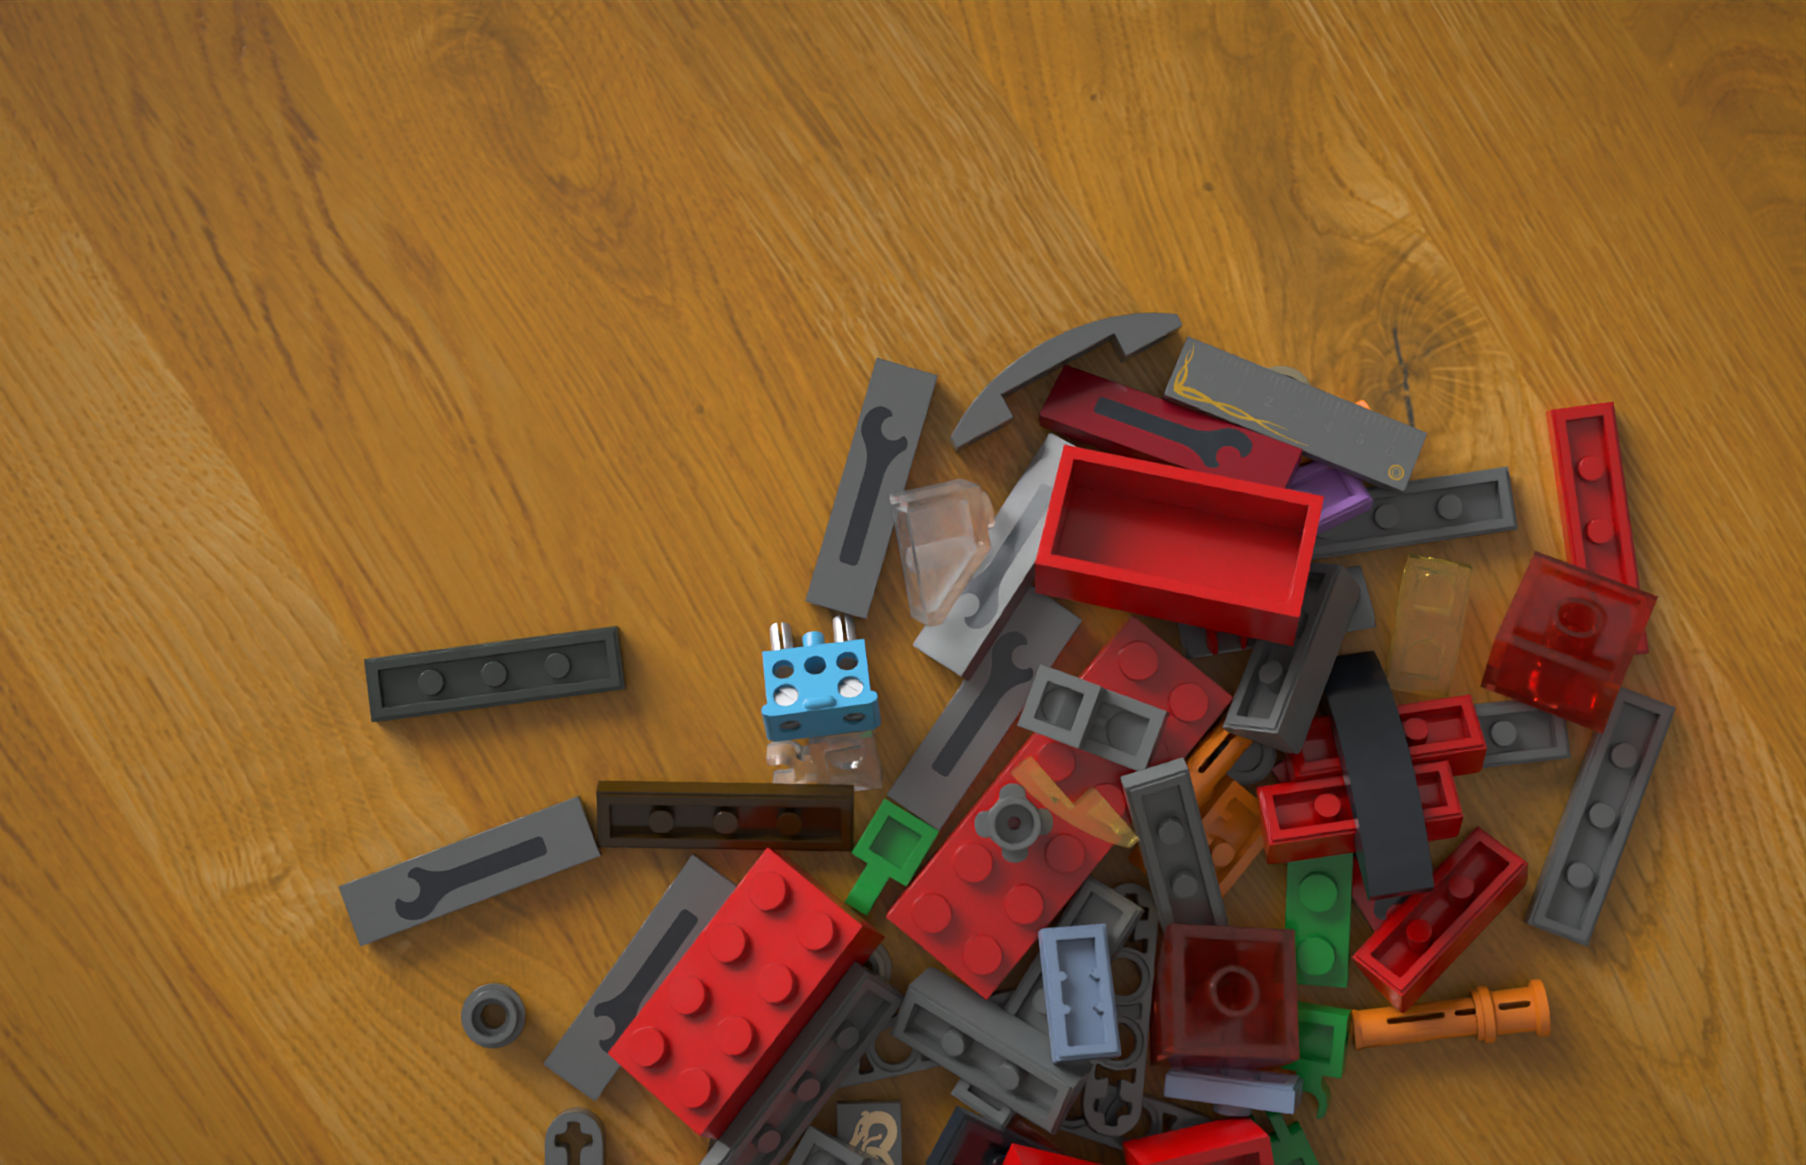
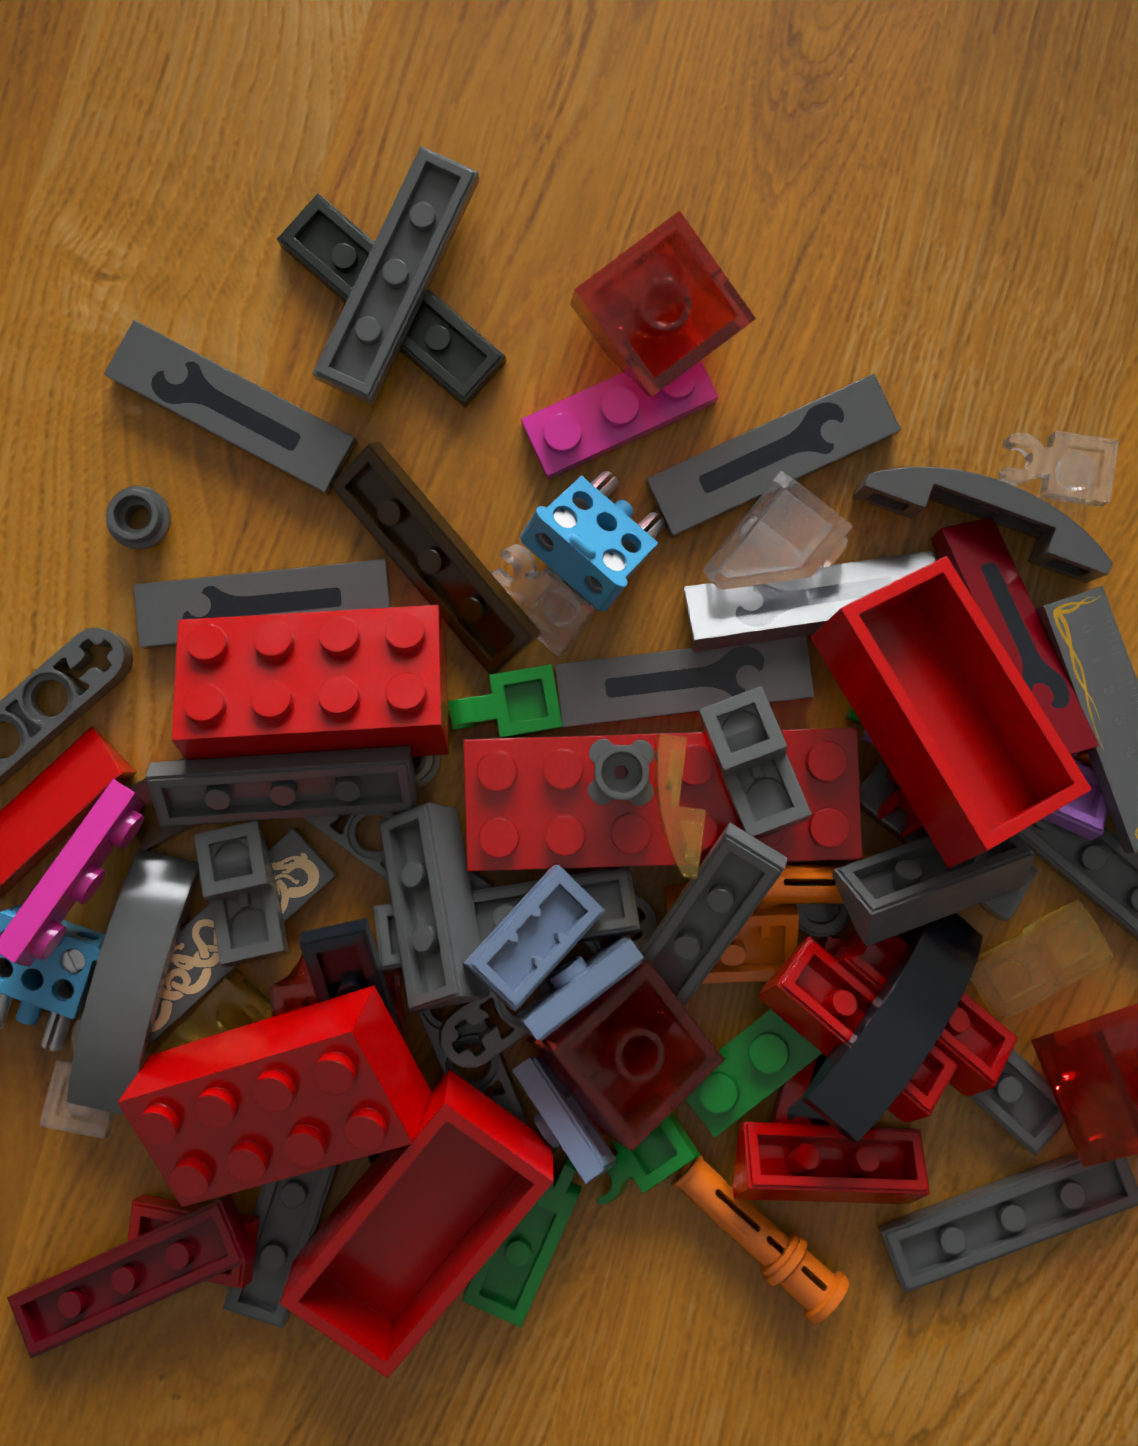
camera: 50 degrees right, 0 degrees up
(484, 657) = (396, 275): none -> dark grey tile
(690, 480) = (661, 306): none -> clear red slope
(734, 574) = (611, 417): none -> dark pink plate
(1078, 272) = (1070, 467): none -> clear plate
(1142, 992) = (578, 985): none -> sand blue plate

